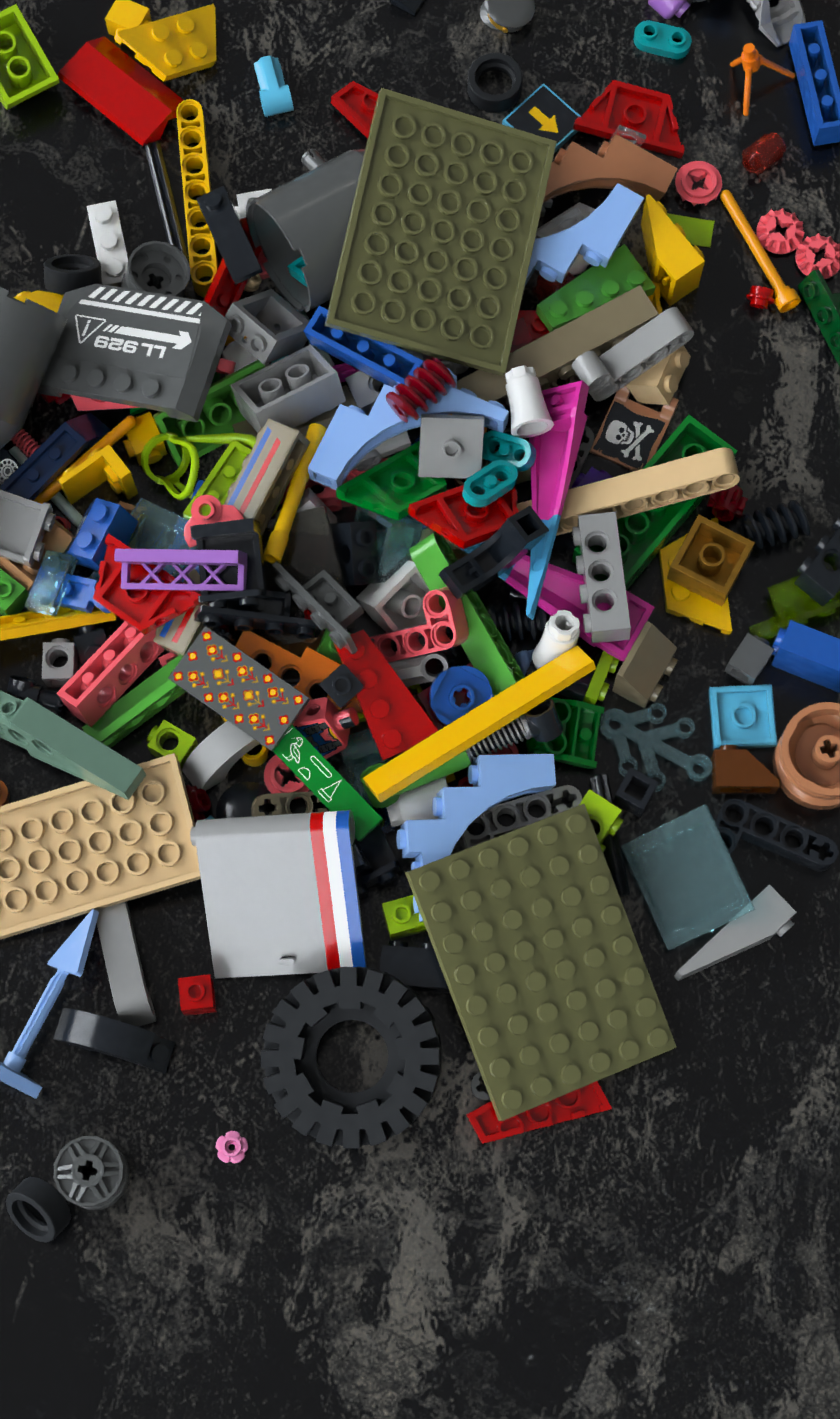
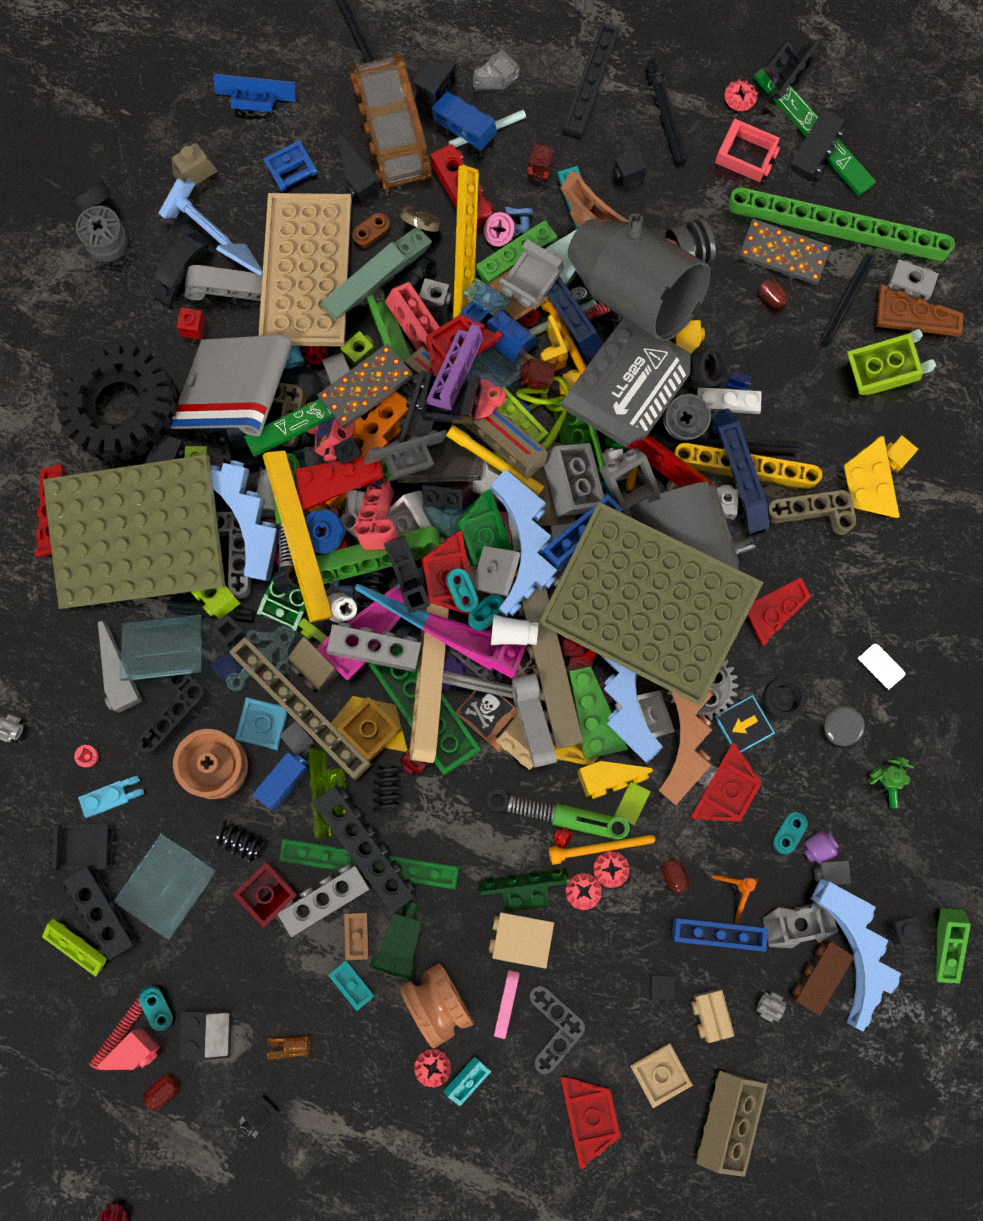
camera: 105 degrees right, 5 degrees up
(79, 234) = (739, 380): none -> clear blue tile
(121, 89) = (844, 435): red slope -> none
(149, 480) = (537, 374): none -> clear red brick
(182, 206) = (742, 469): none -> dark blue slope
(225, 366) = (607, 444): coral tile -> none
(229, 234) = (712, 467): black slope -> none
(234, 110) = (809, 510): none -> dark tan beam
(235, 1155) = (97, 325): bright pink plate -> none
(273, 92) = (814, 540): medium azure piece -> none
(419, 389) = (533, 555): dark red piece -> none
(600, 438) = (477, 684): none -> light grey axle
(682, 790) = (225, 666): none -> clear blue tile
(698, 171) = (663, 832): coral gear -> none
(710, 660) = (300, 709): none -> dark tan brick
(735, 307) = (560, 815): none -> piece
(740, 773) = (222, 707): reddish brown slope -> none

